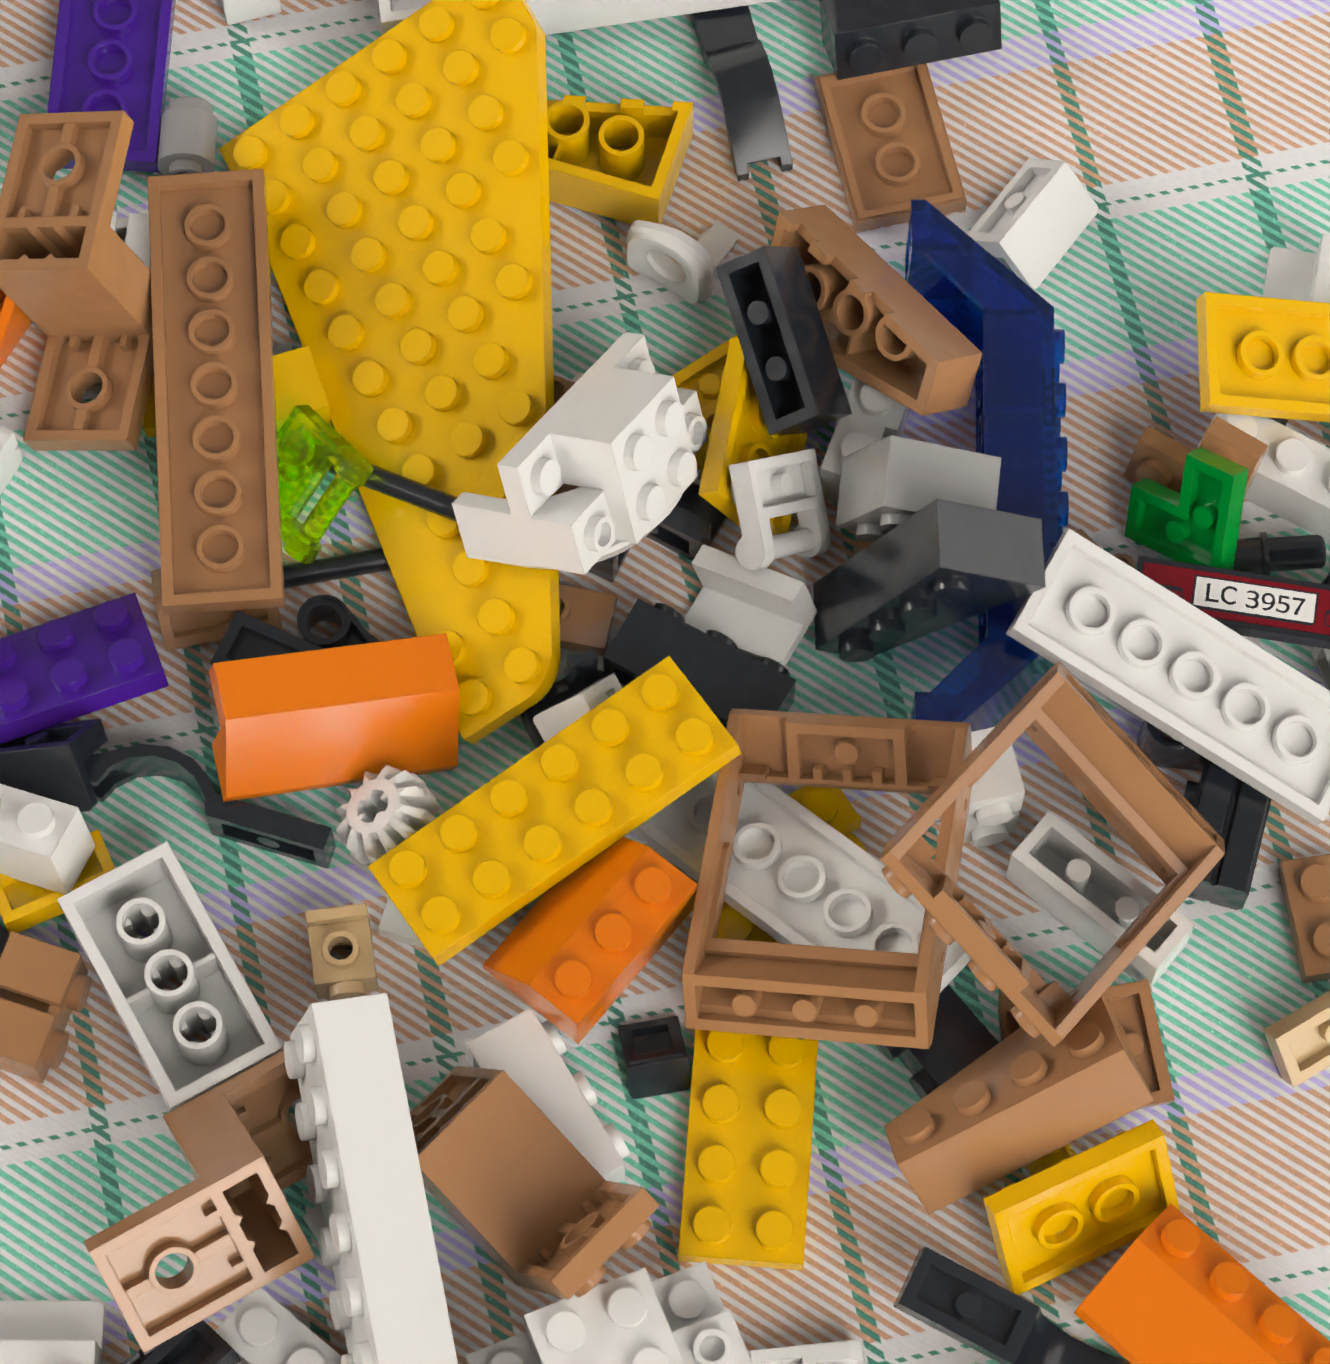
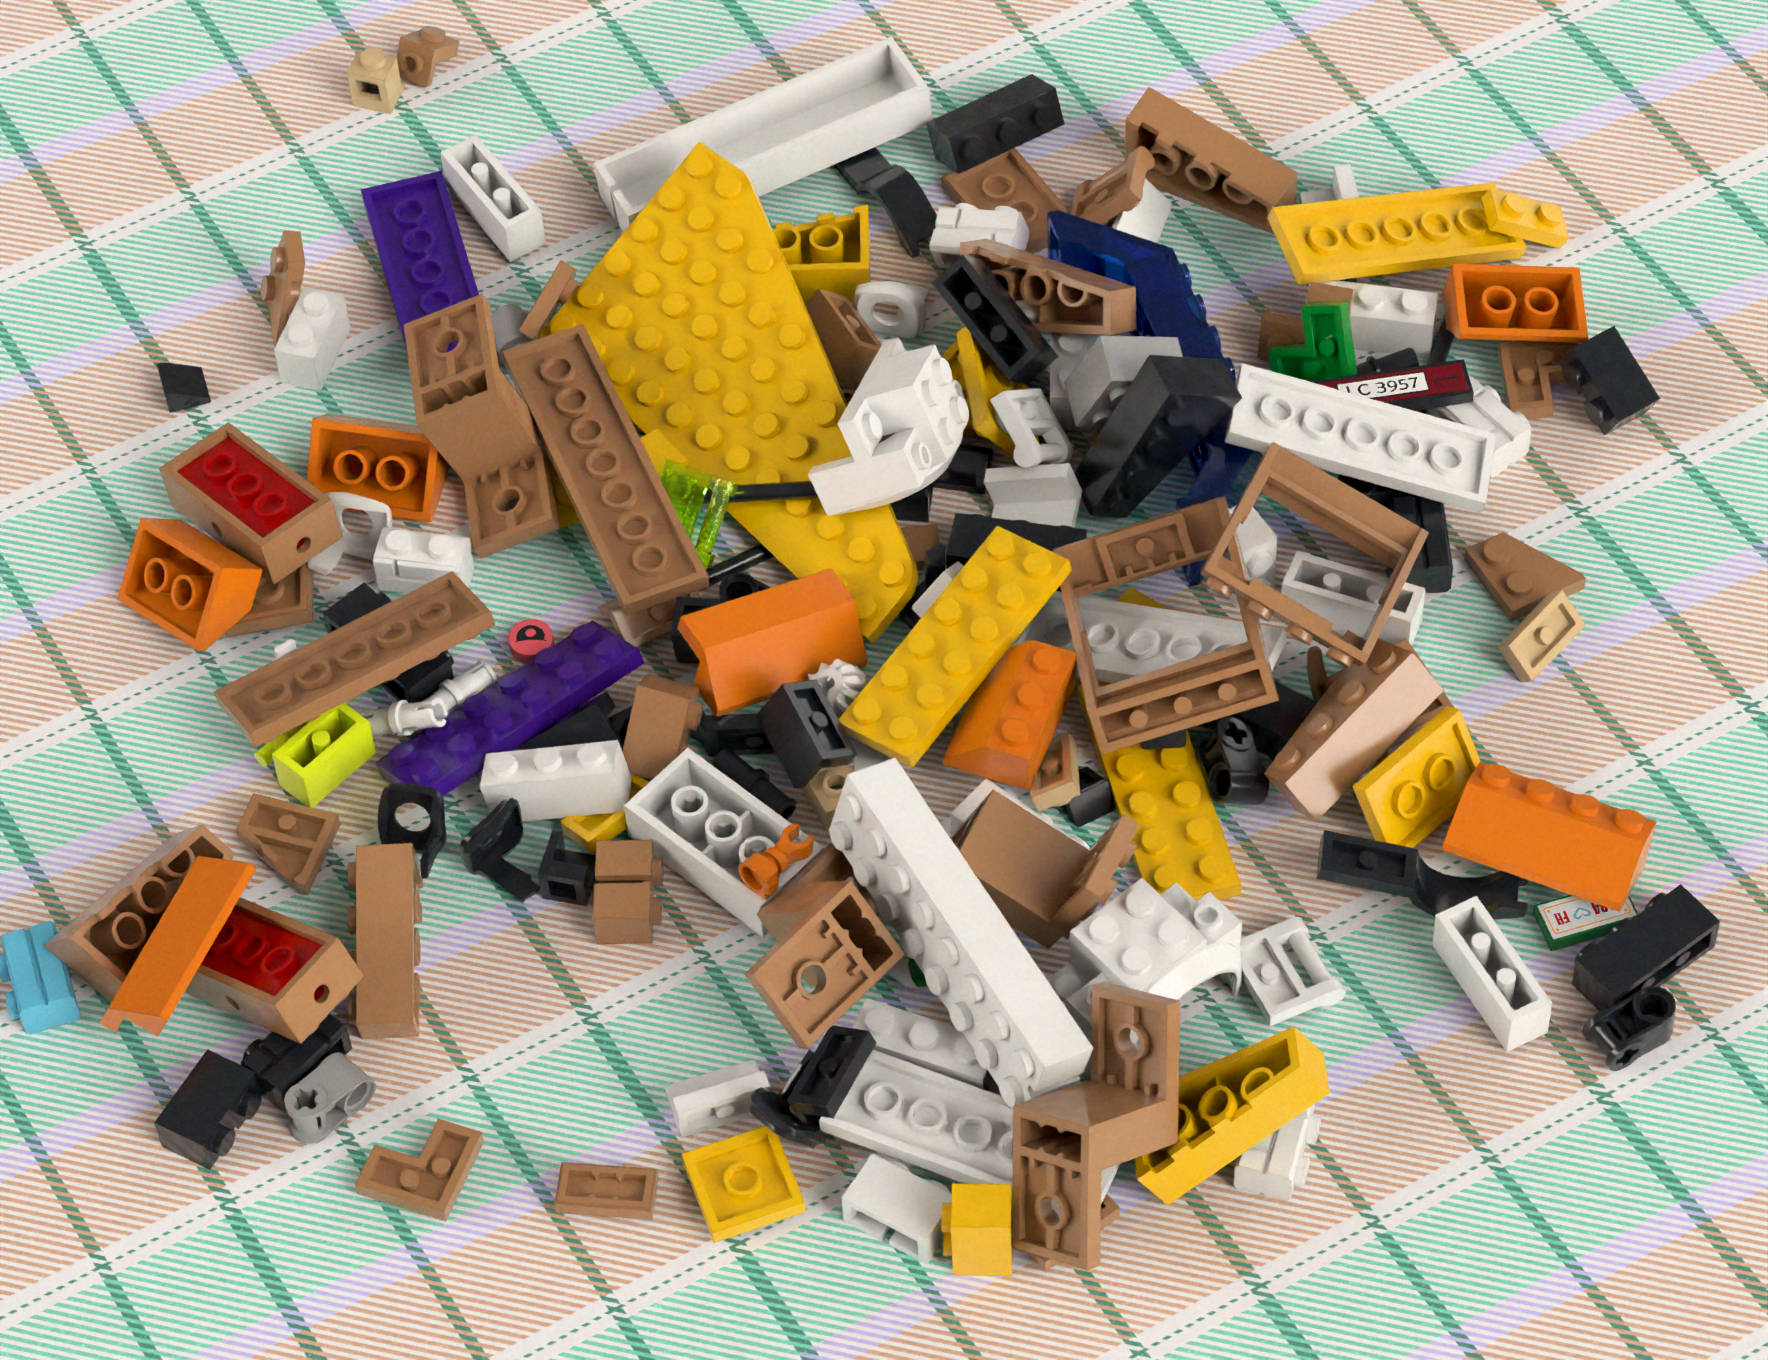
camera: 15 degrees left, 15 degrees down
(49, 593) = (529, 638): none -> coral tile
(148, 793) = (660, 724): none -> medium nougat brick
(185, 1063) = (761, 870): none -> orange piece
(245, 904) = (754, 782): none -> black pin
(253, 103) = (556, 292): none -> medium nougat wing
(324, 867) = (804, 731): none -> black panel
(591, 285) = (844, 336): none -> medium nougat brick
(625, 1031) = (1057, 775): none -> tan plate
(813, 175) = (969, 224): none -> white brick
(853, 1096) = (1233, 765): none -> black piece
(1015, 180) = (1115, 190): none -> medium nougat plate
(1159, 173) = (1207, 162): none -> medium nougat wedge

